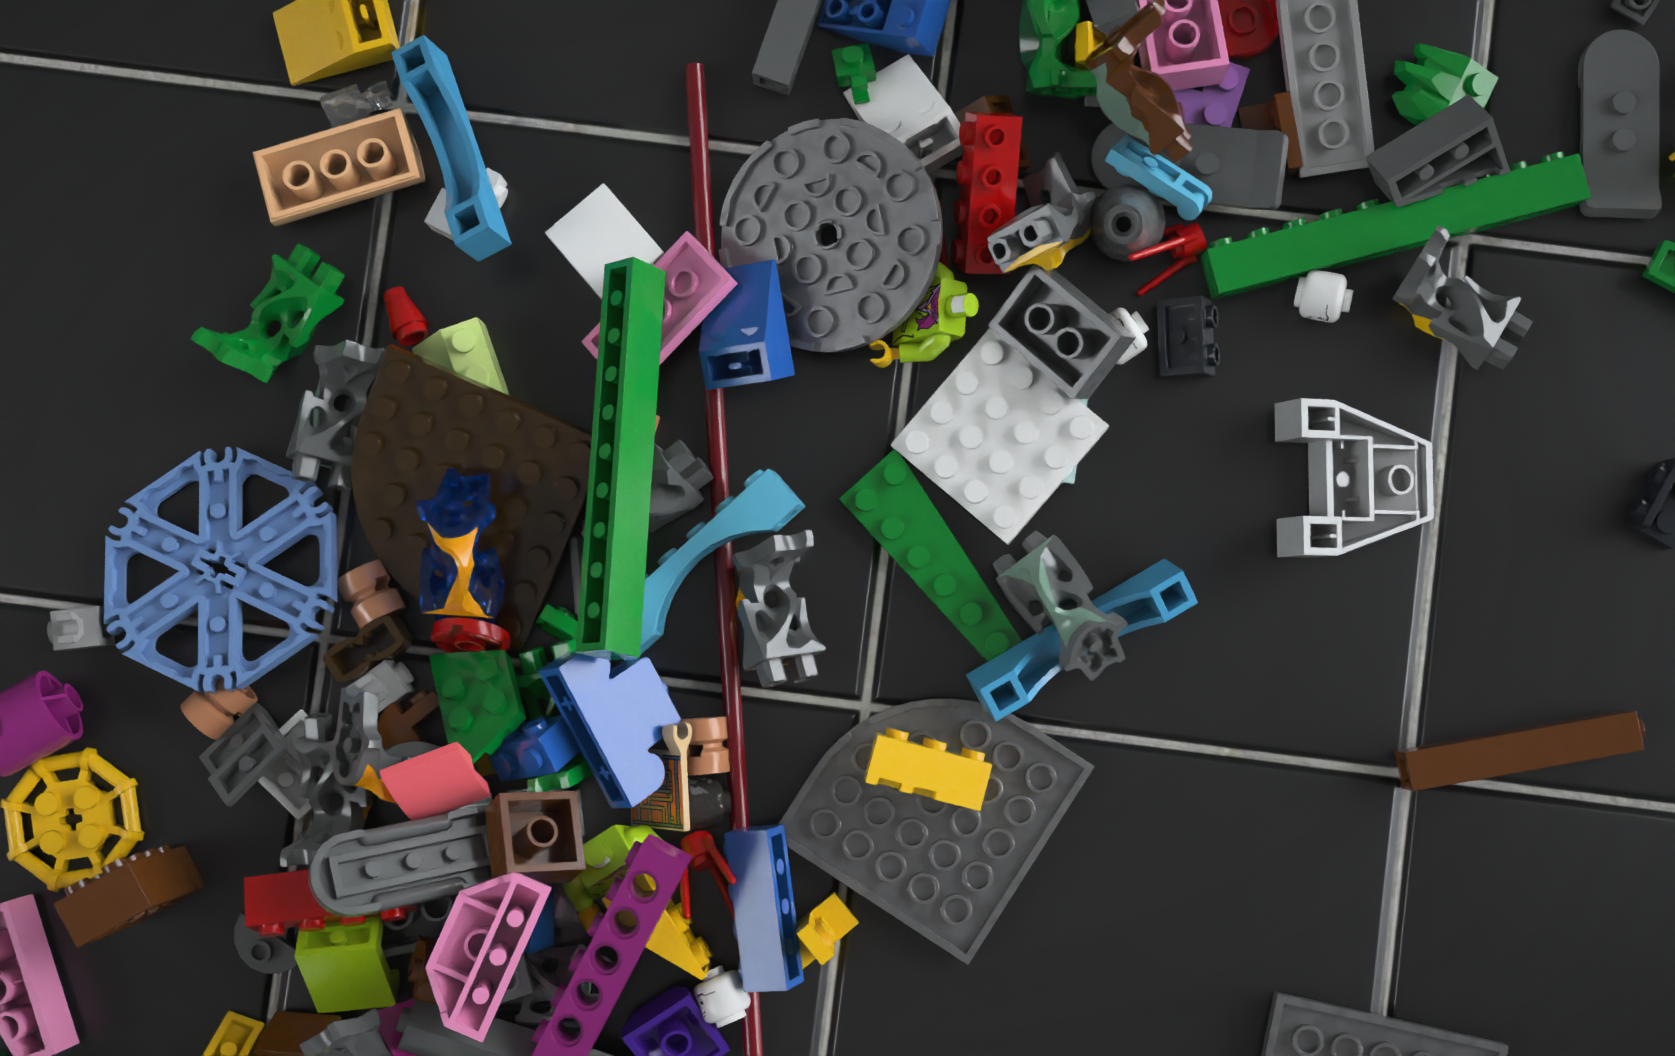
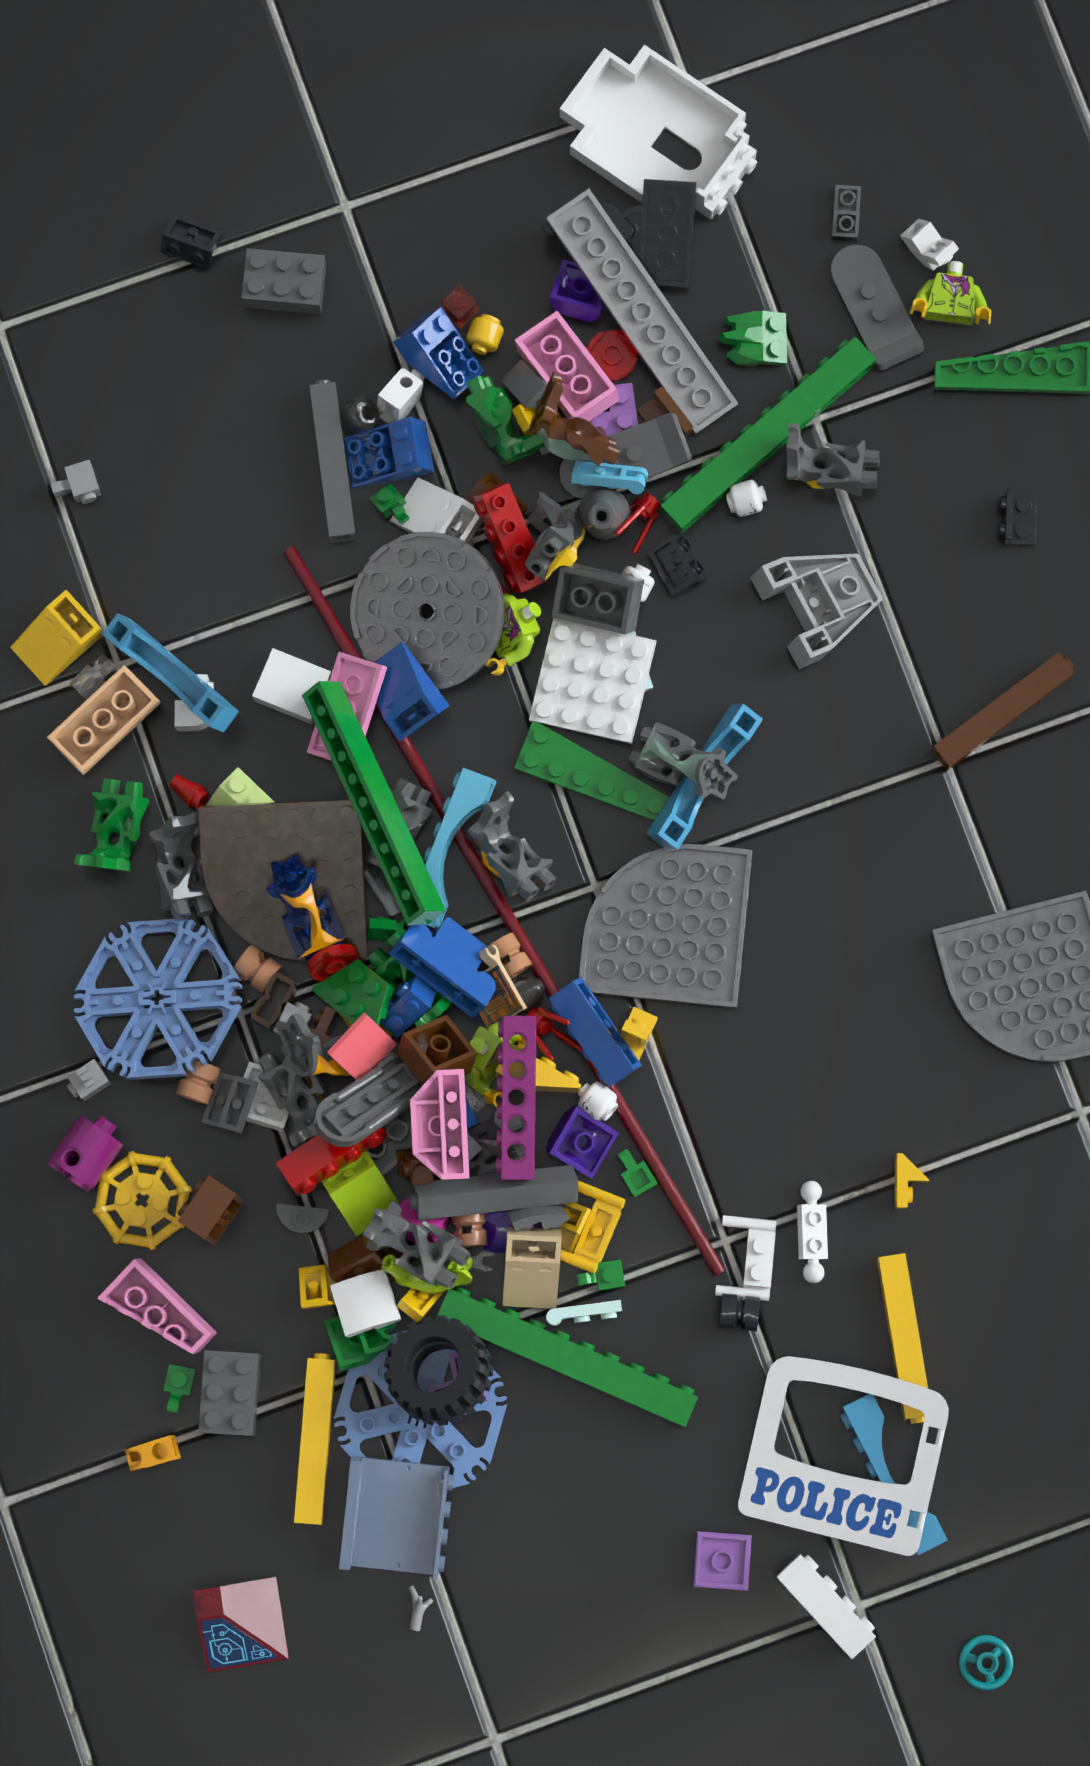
camera: 25 degrees left, 5 degrees down
(928, 769) = (651, 899): yellow wedge -> none
(1439, 153) = (770, 379): dark grey wedge -> none

